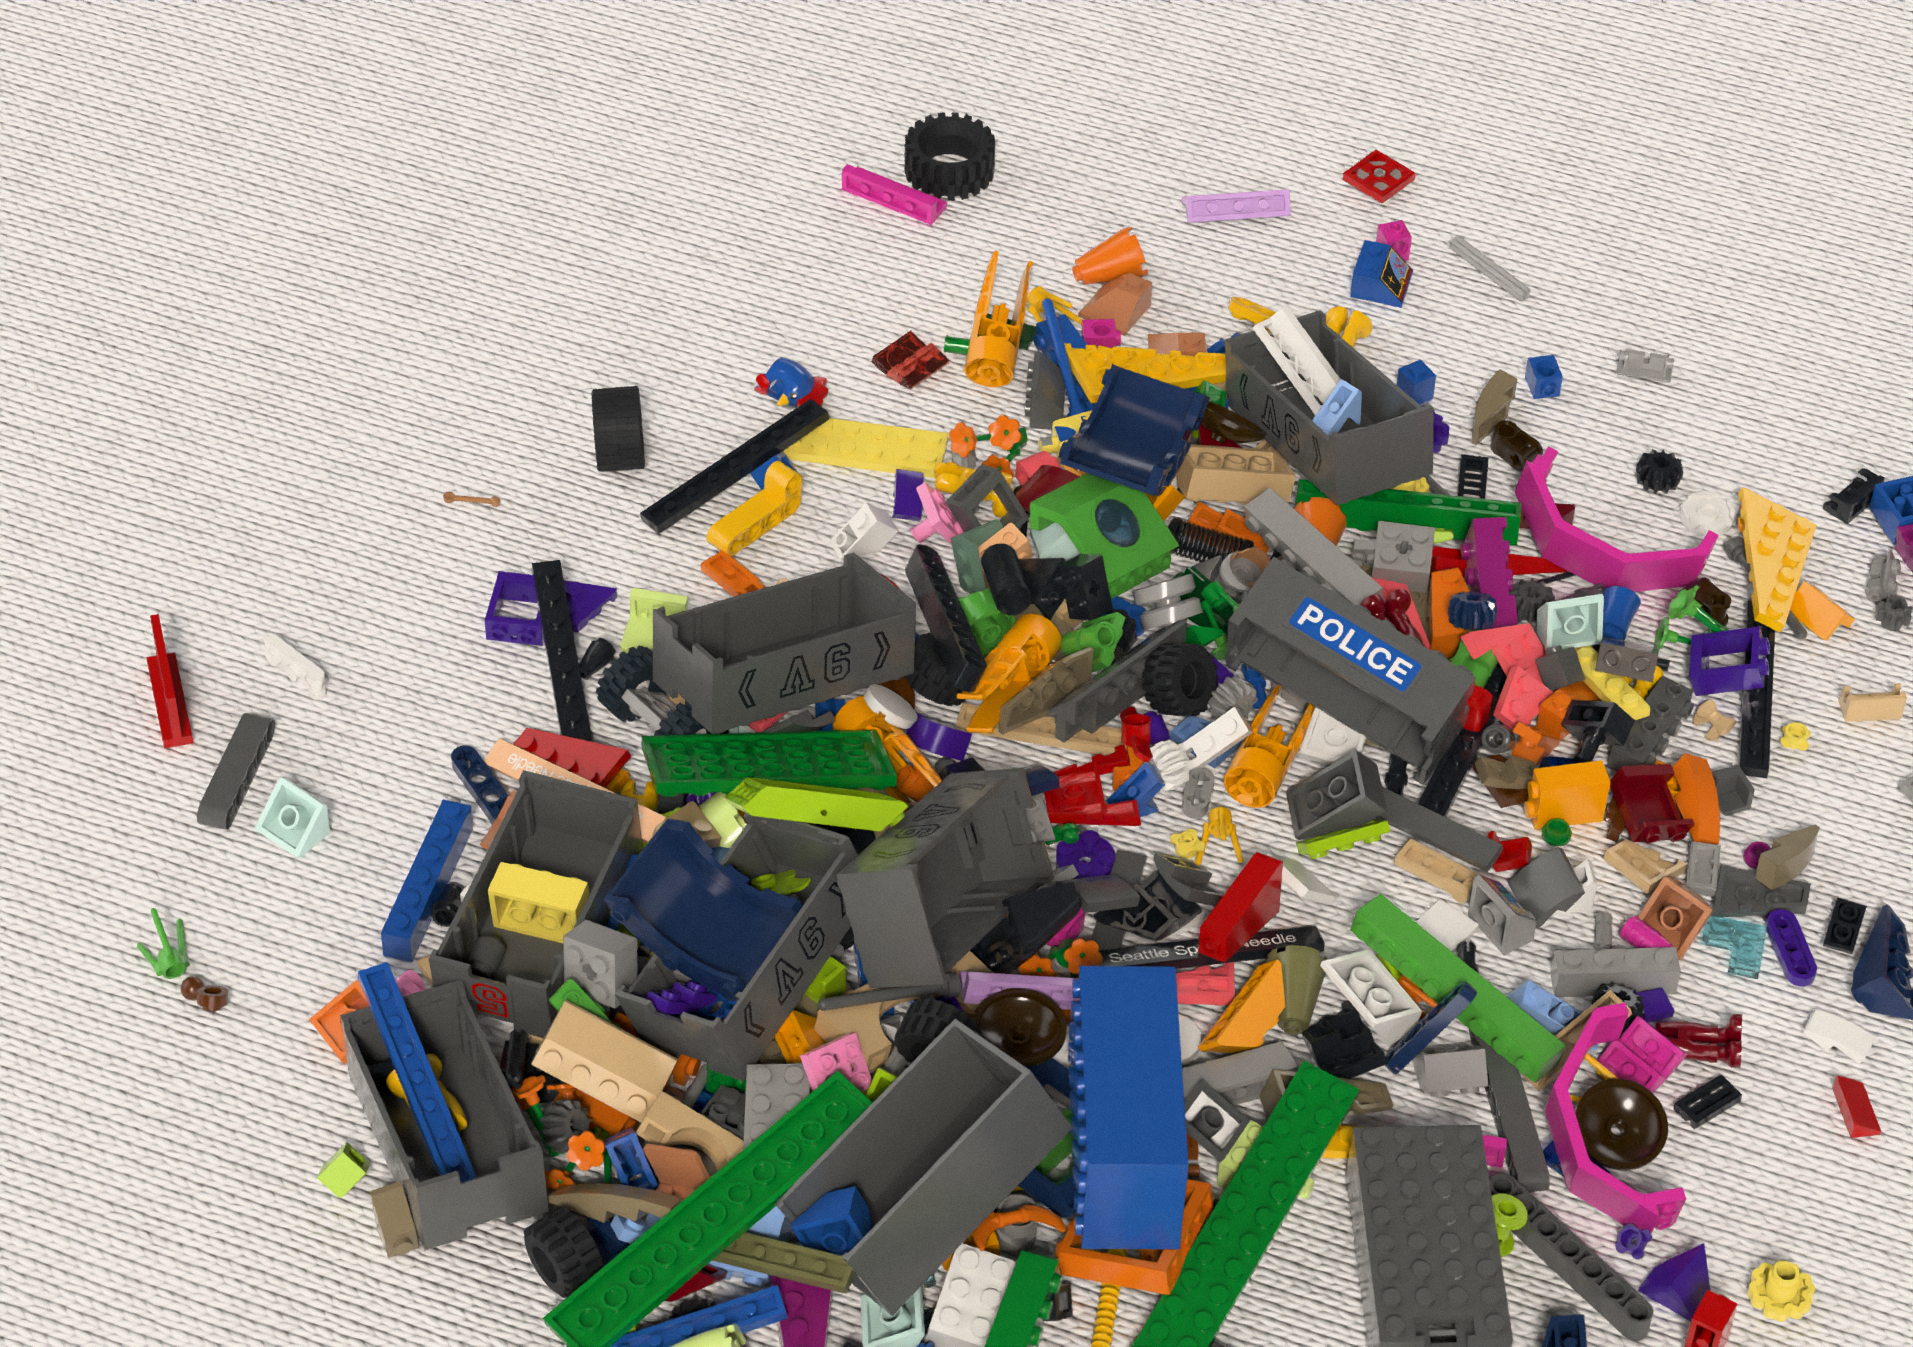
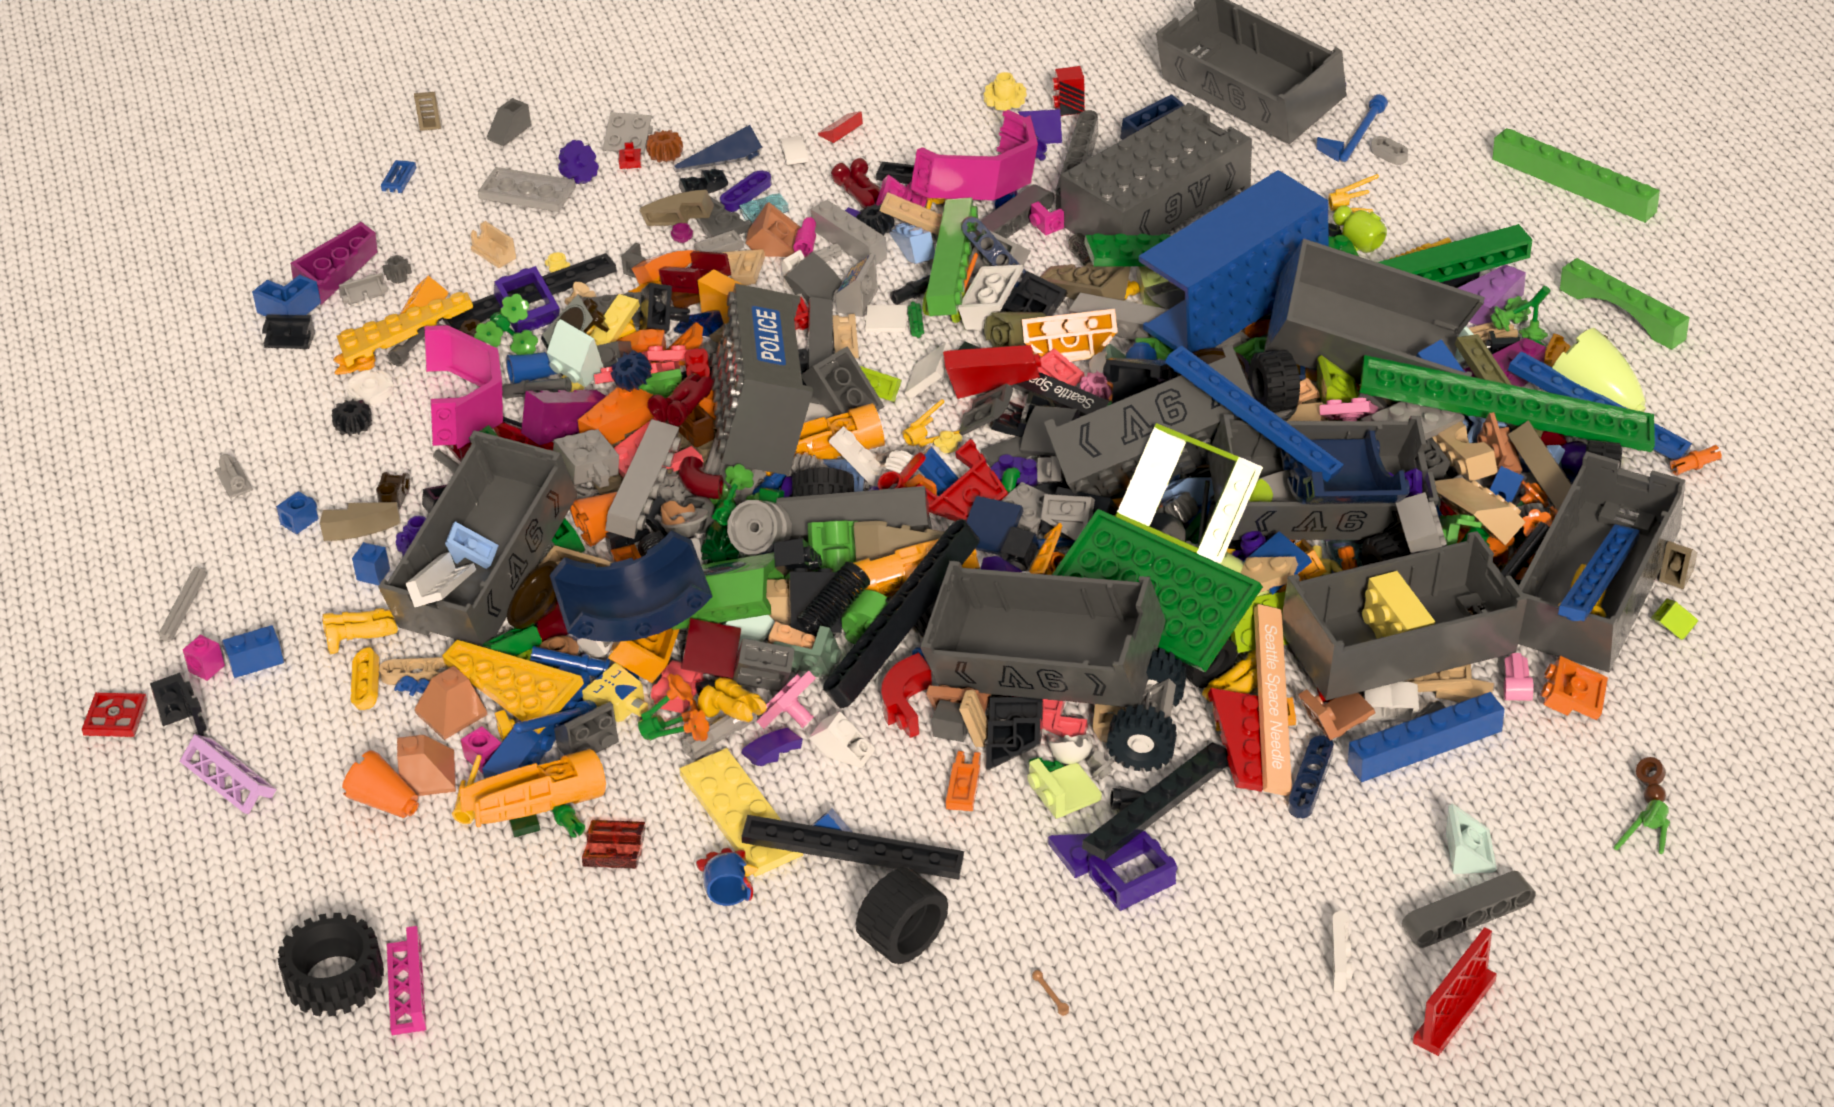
camera: 125 degrees left, 5 degrees down
(760, 513) = (888, 807): yellow beam -> none
(825, 858) = (1253, 413): none -> blue plate
(1328, 198) = (175, 702): none -> black bracket

